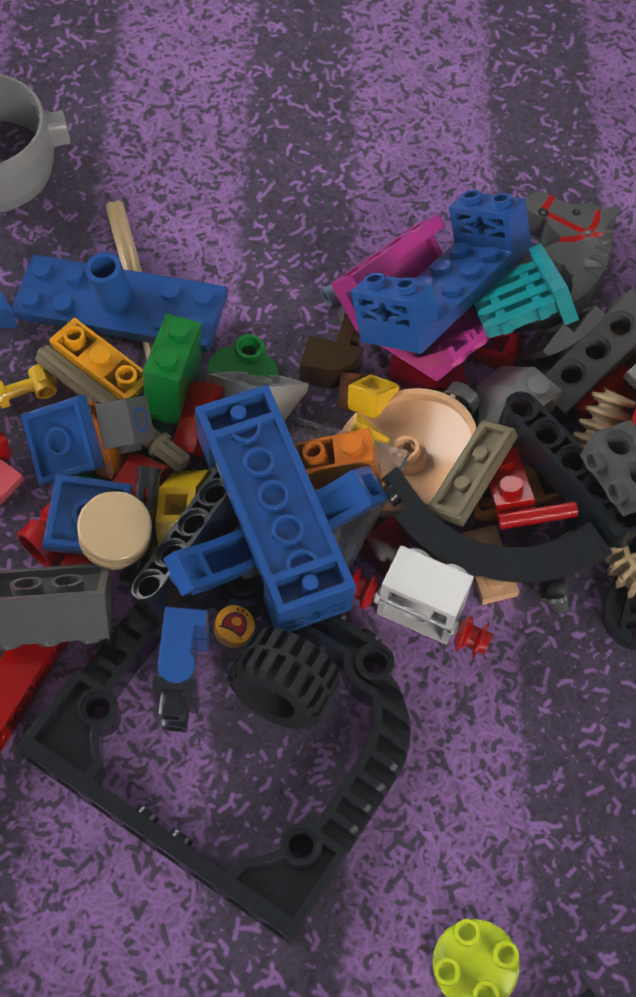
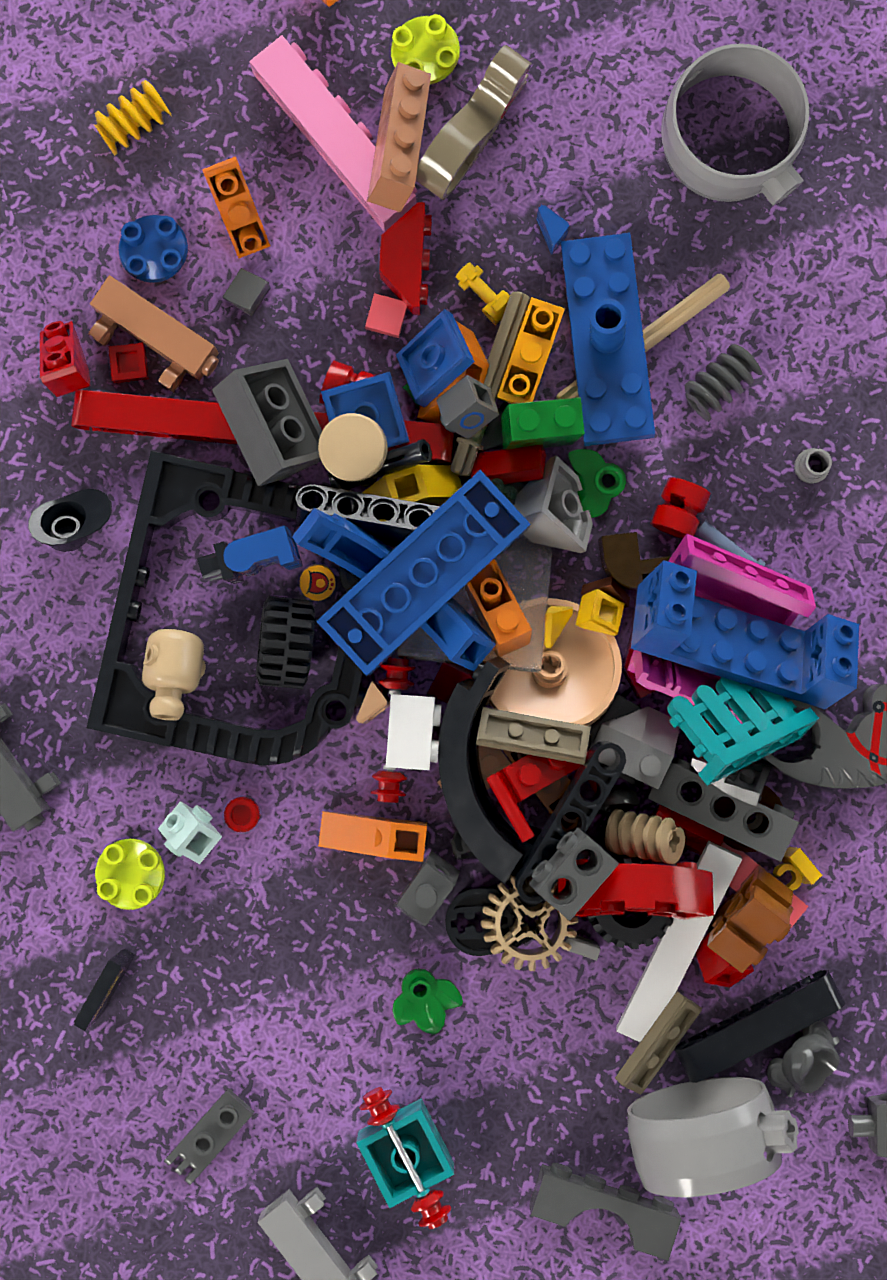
camera: 70 degrees right, 25 degrees up
(47, 867) = (70, 519): none -> black piece
(202, 231) = (720, 379): none -> dark grey piece
(266, 804) = (171, 669): none -> tan piece
(300, 299) = (677, 520): none -> red wheel
(308, 195) = (803, 470): none -> light grey piece
(381, 624) = (373, 704): none -> light nougat slope
(449, 811) = (242, 814): none -> red tile
(451, 868) = (189, 832): none -> light aqua brick
(464, 395) = (623, 698): dark grey tile -> none
(519, 676) = (373, 835): none -> orange slope
(595, 644) = (427, 889): none -> dark grey torso

